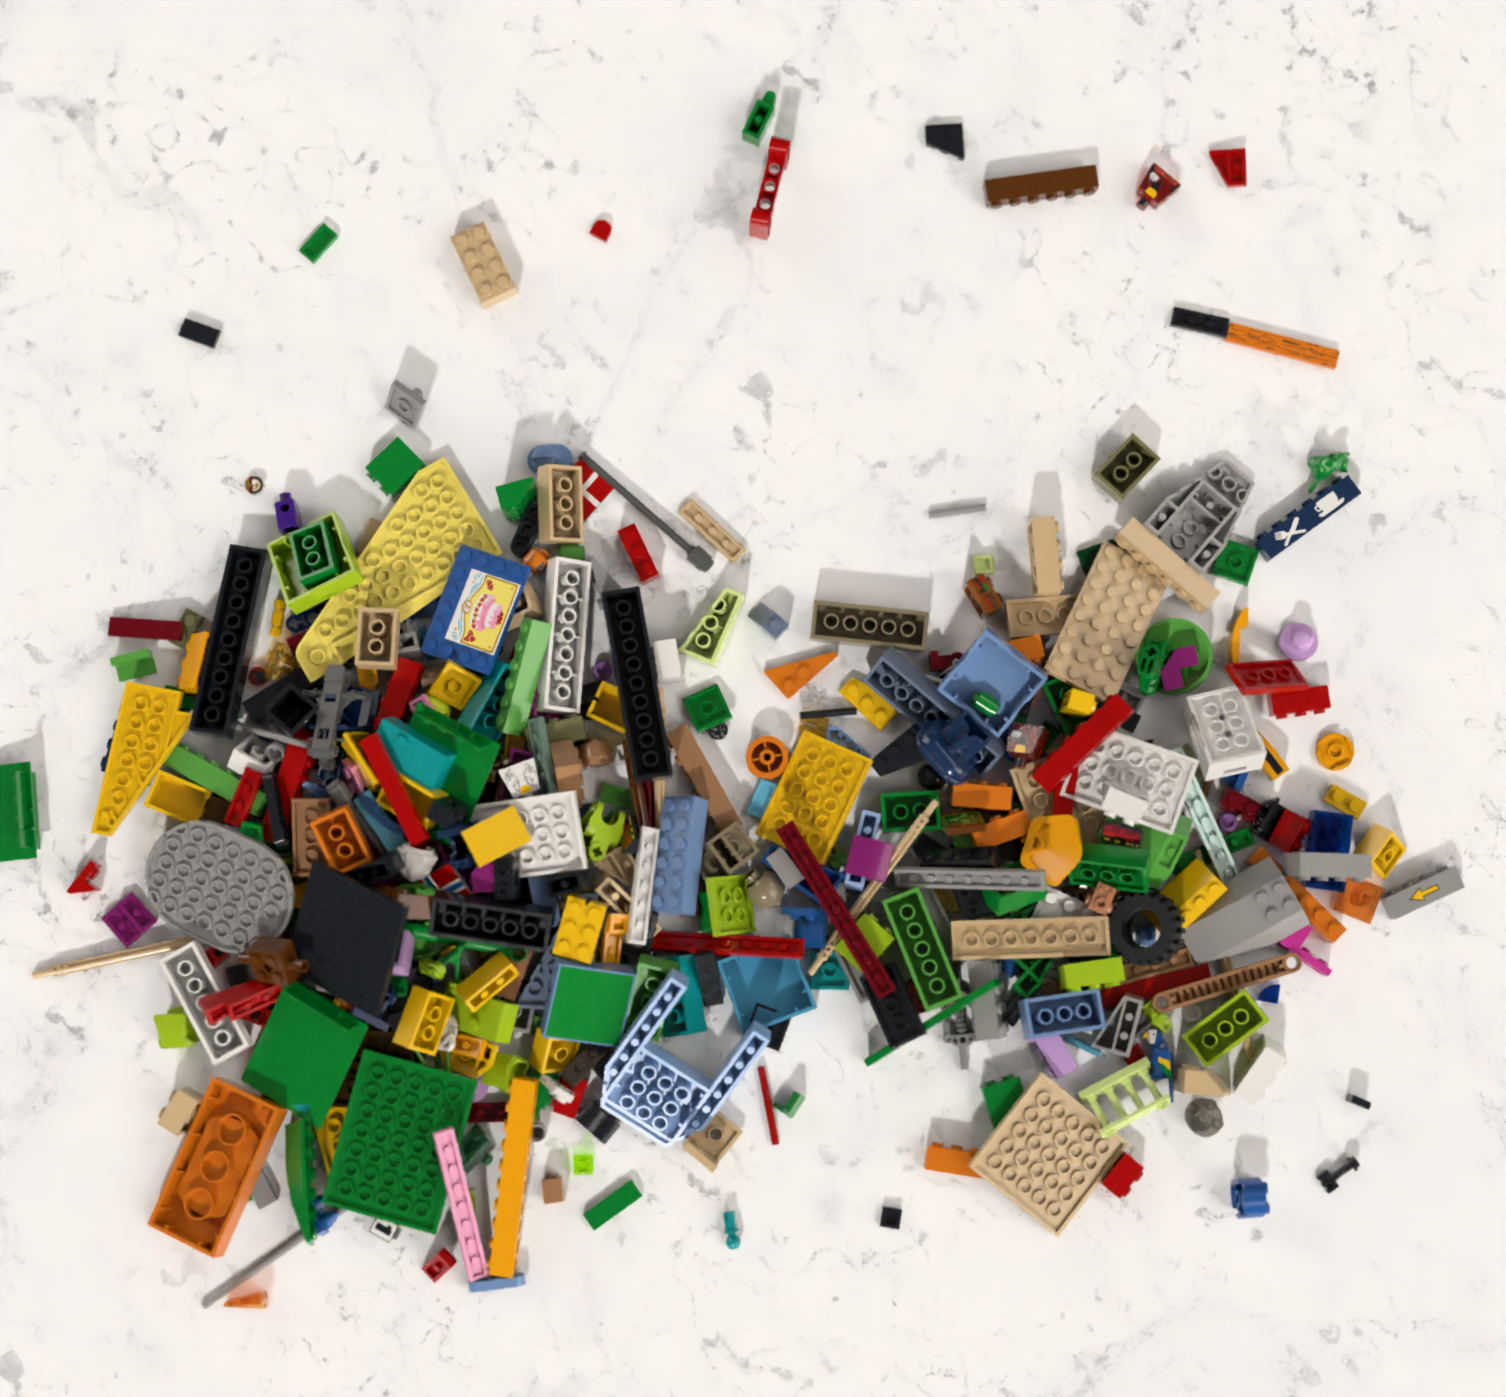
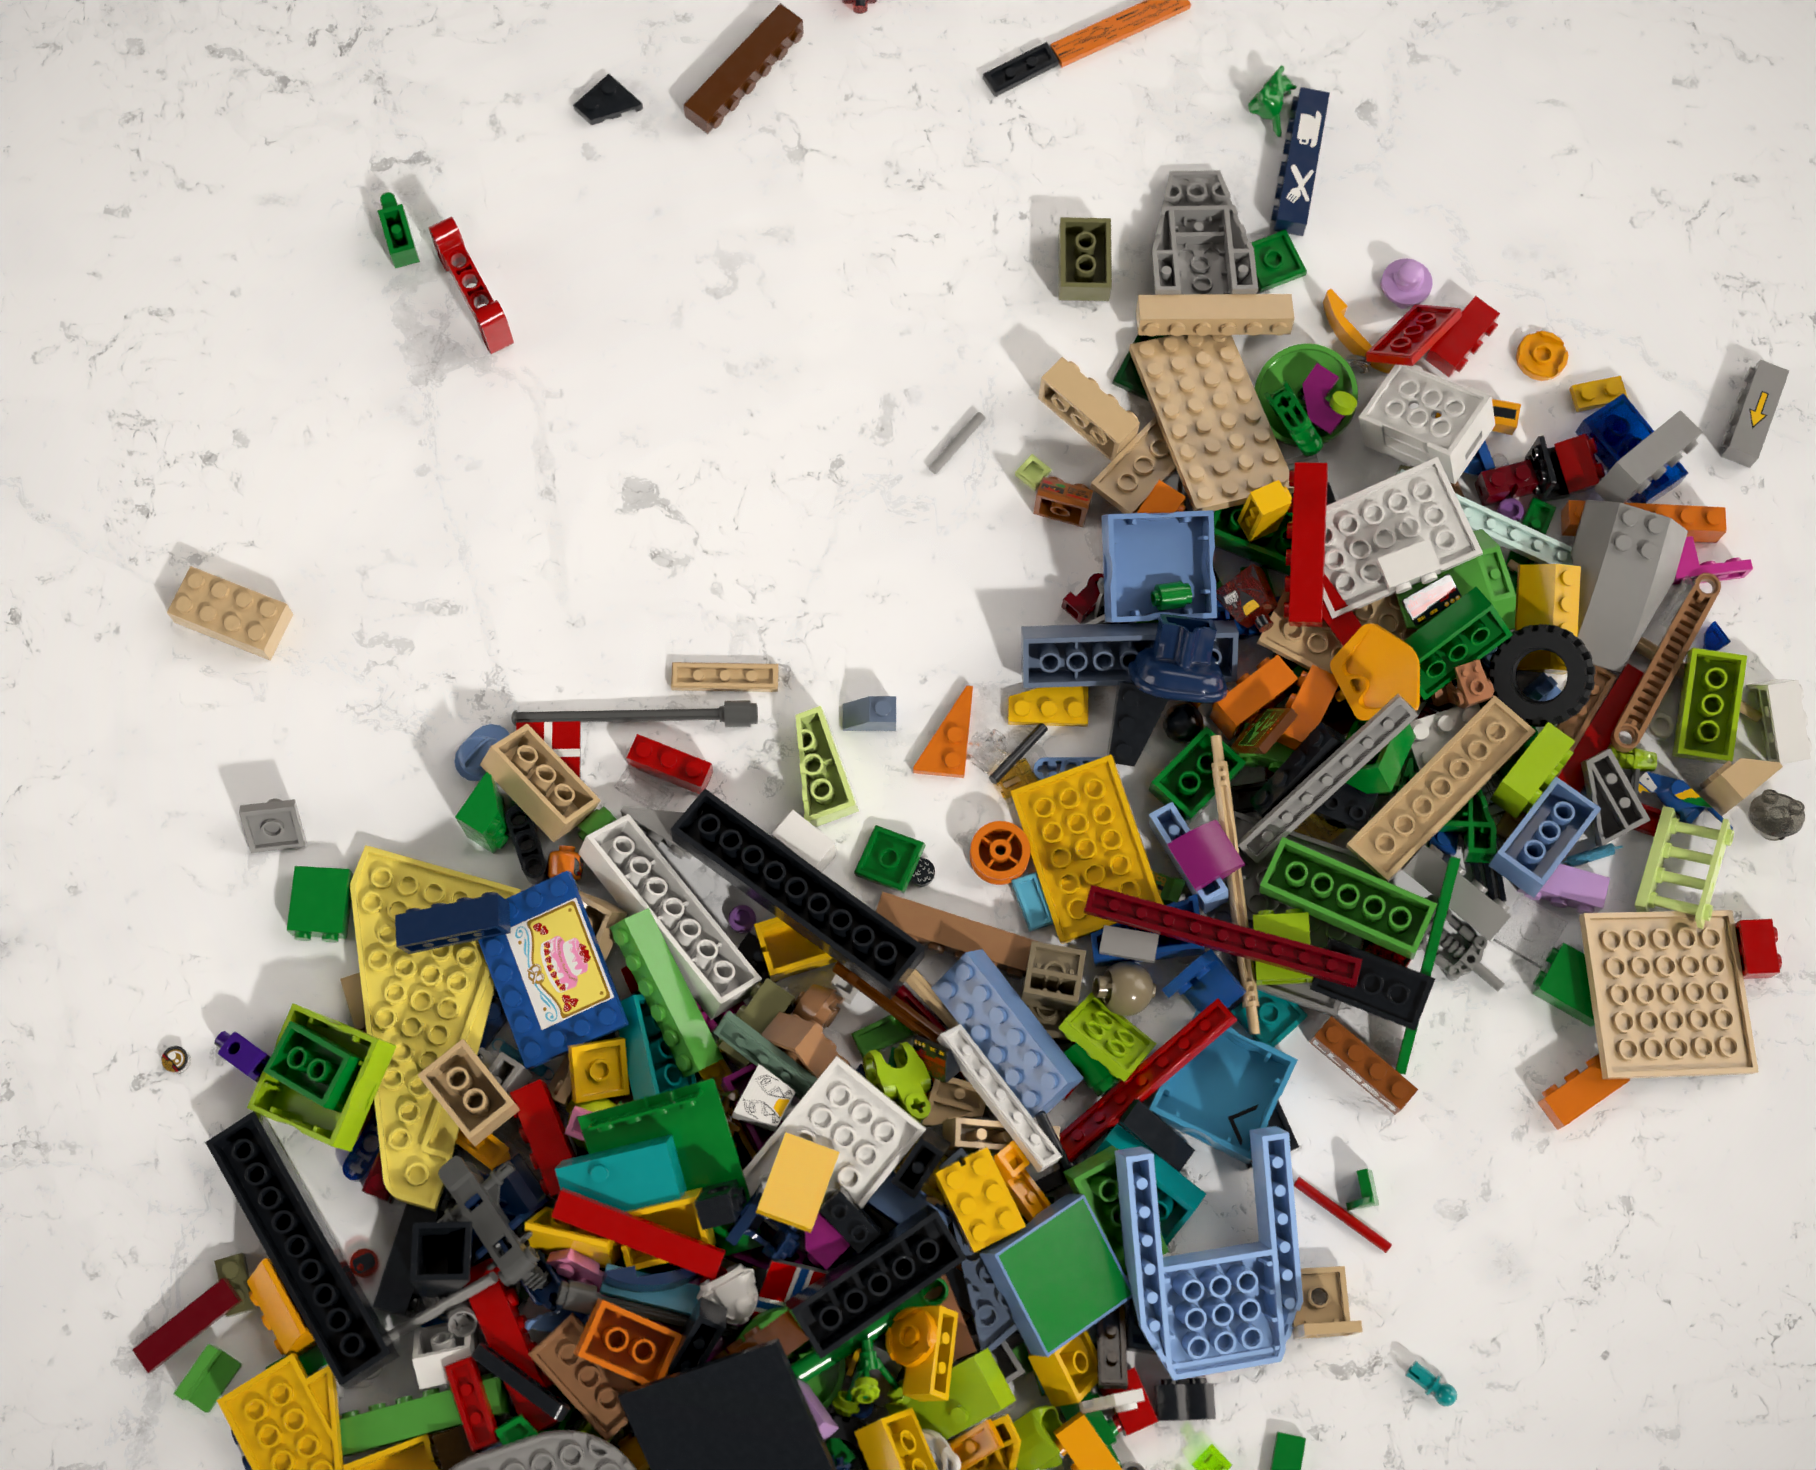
camera: 45 degrees left, 10 degrees down
(277, 618) = (330, 1180): yellow axle -> none
(279, 661) = (374, 1223): clear yellow plate -> none
(318, 243) = (22, 744): green tile -> none
(447, 541) = (452, 923): none -> dark blue brick
(484, 965) = (911, 1337): none -> light orange tile
(601, 230) = (327, 476): red tile -> none
(851, 1041) = (1363, 1065): none -> dark orange brick
(869, 626) = (978, 628): dark tan brick -> none
(890, 1217) = (1577, 1213): black tile -> none
(1186, 680) = (1343, 403): none -> lime tile
(1266, 955) = (1676, 601): none -> clear tile
(1358, 900) = (1707, 475): clear orange tile -> none
(1383, 846) = (1672, 395): yellow slope -> none

